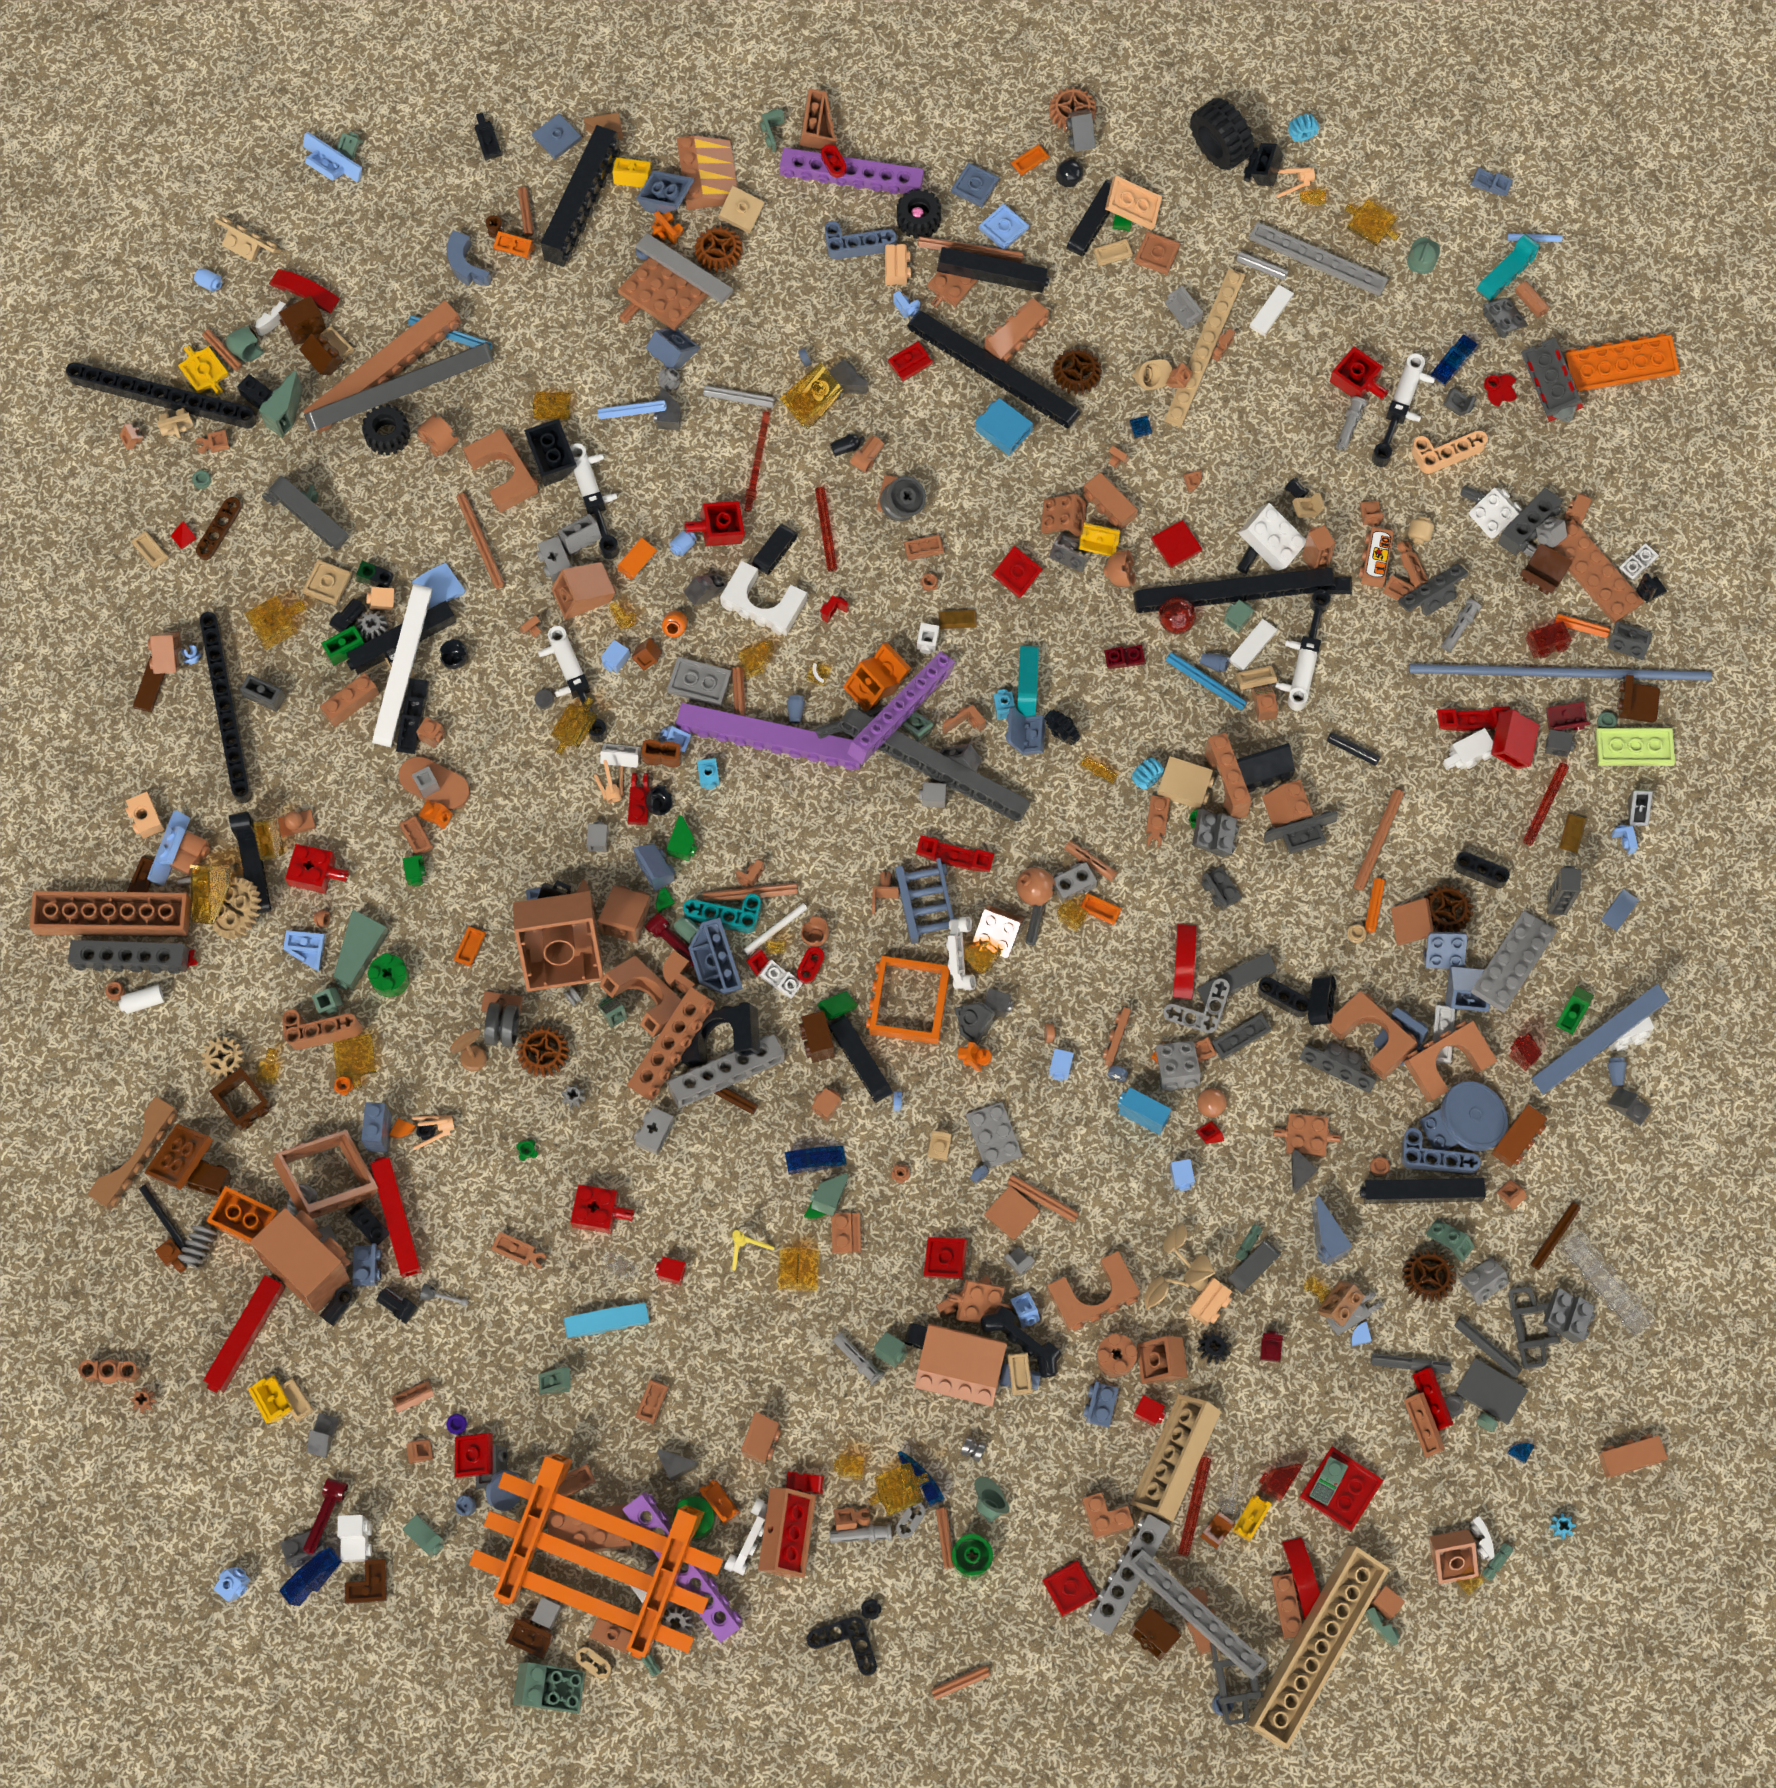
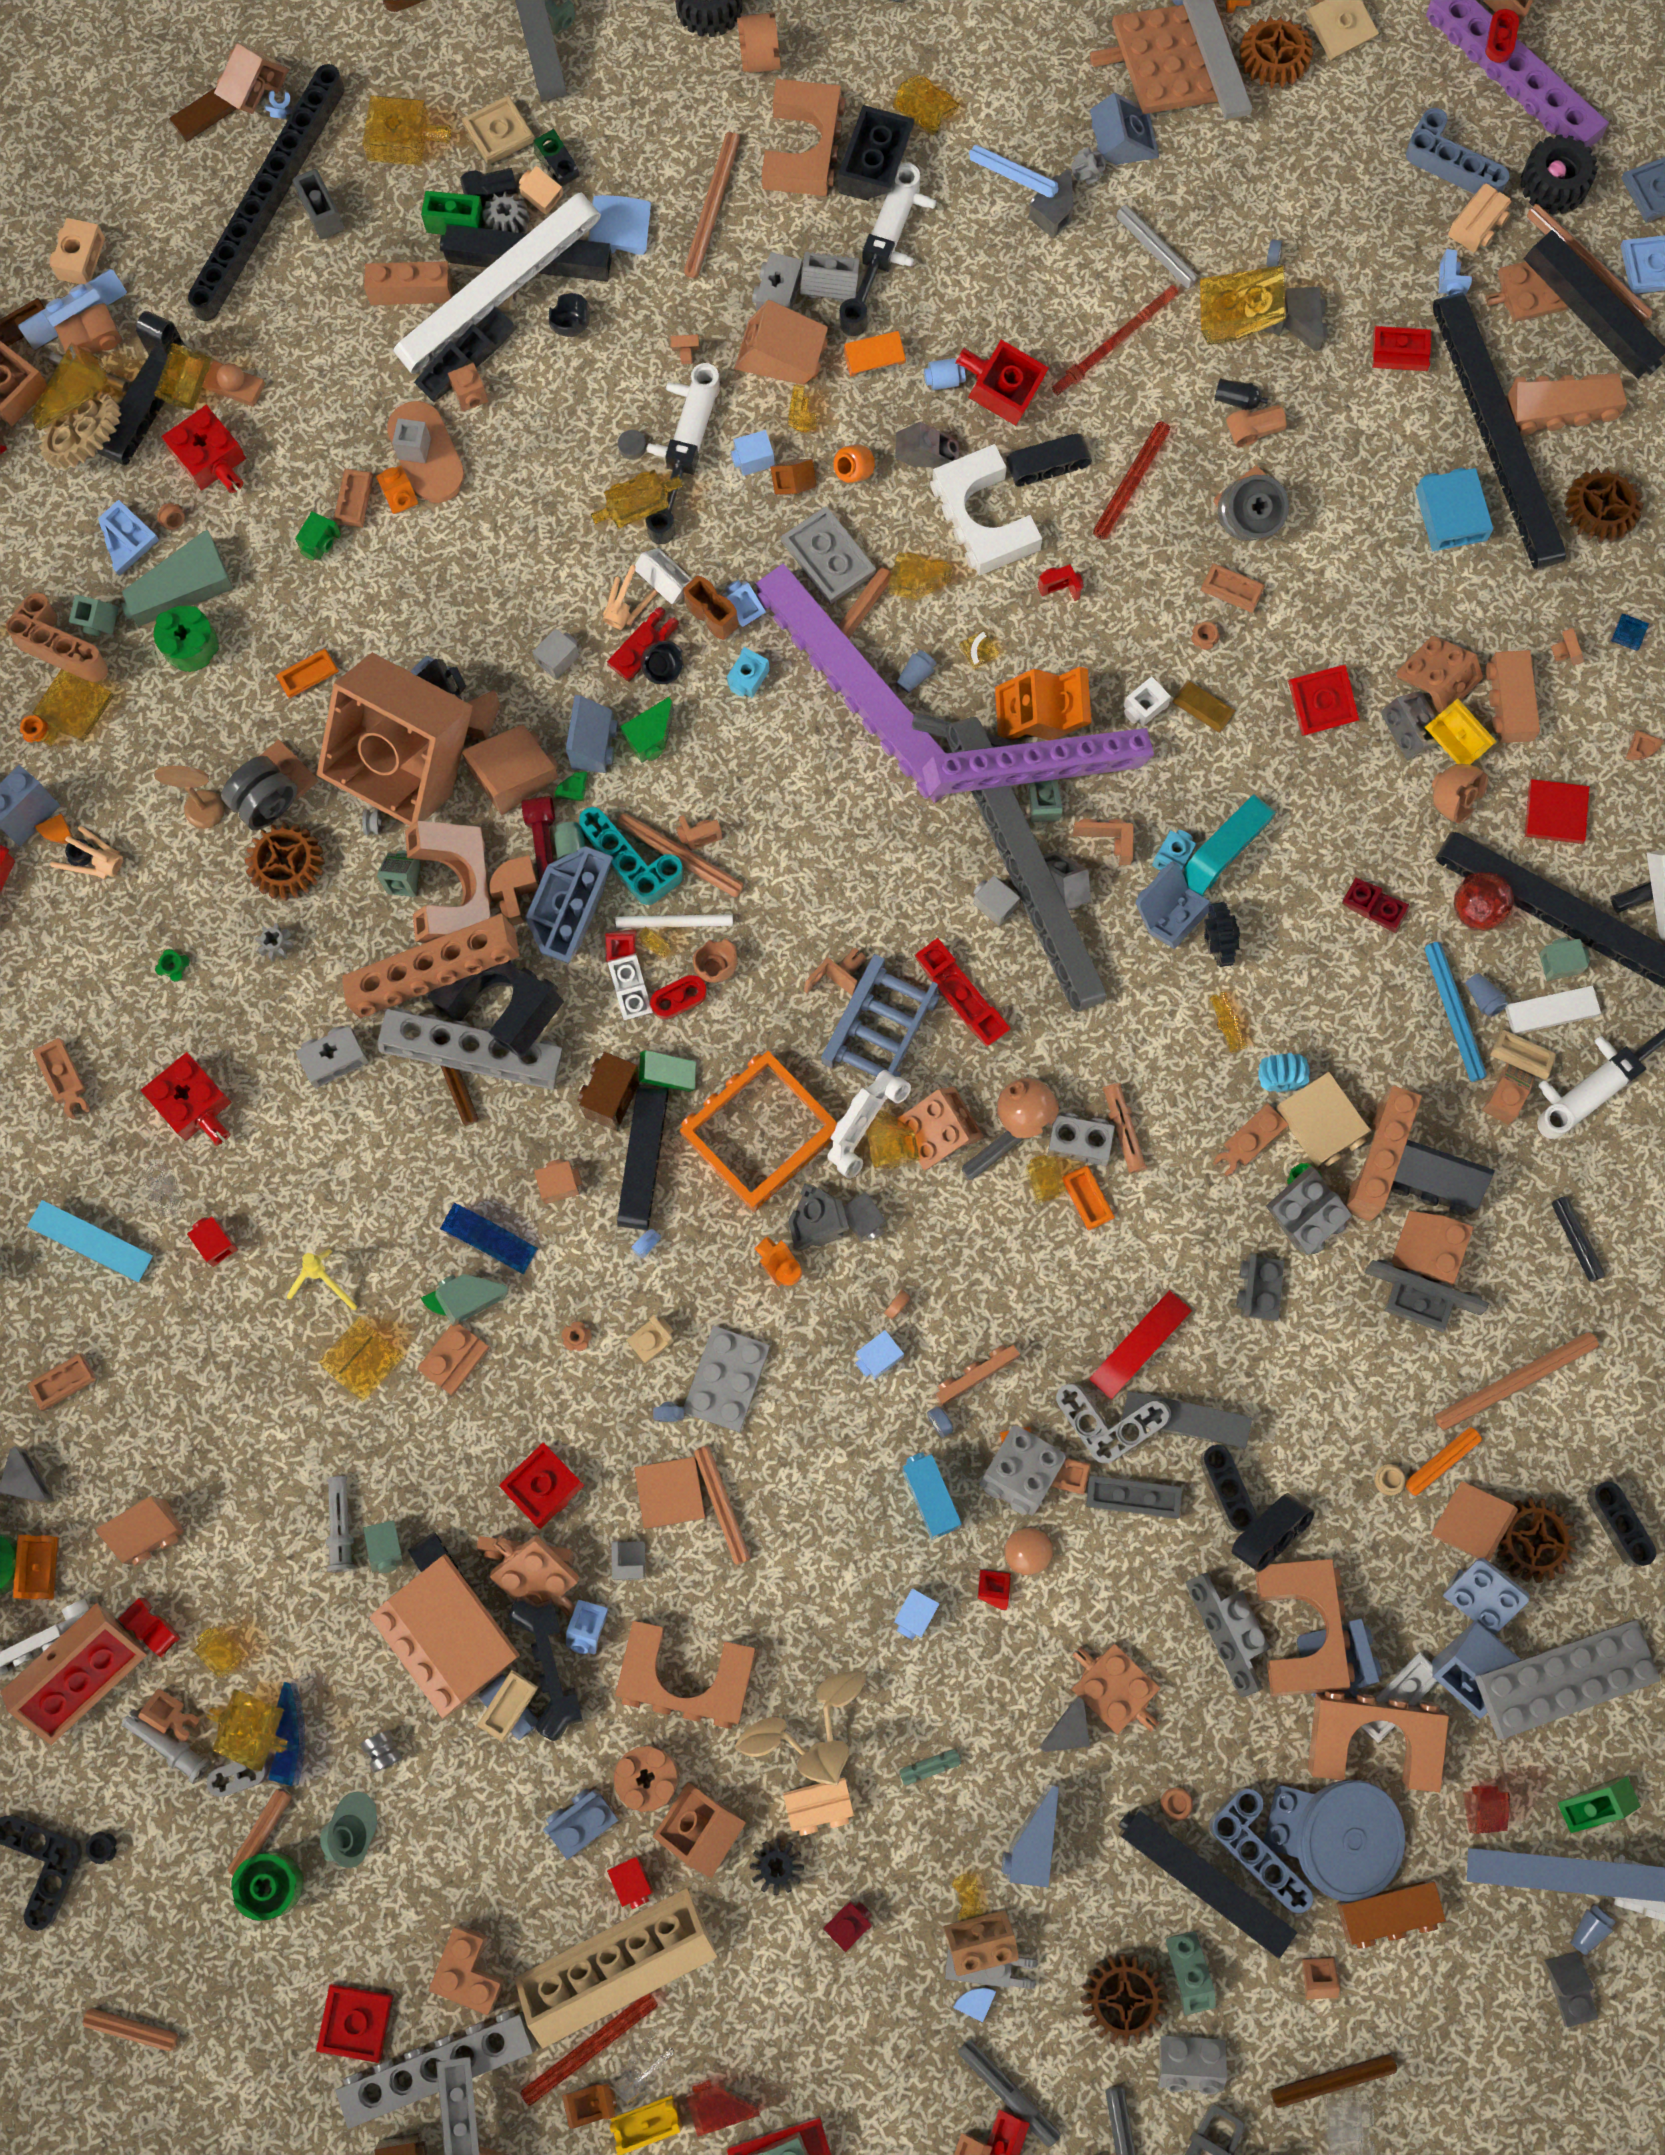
camera: 40 degrees right, 5 degrees up
(1254, 1266) = (910, 1804): dark grey beam -> none

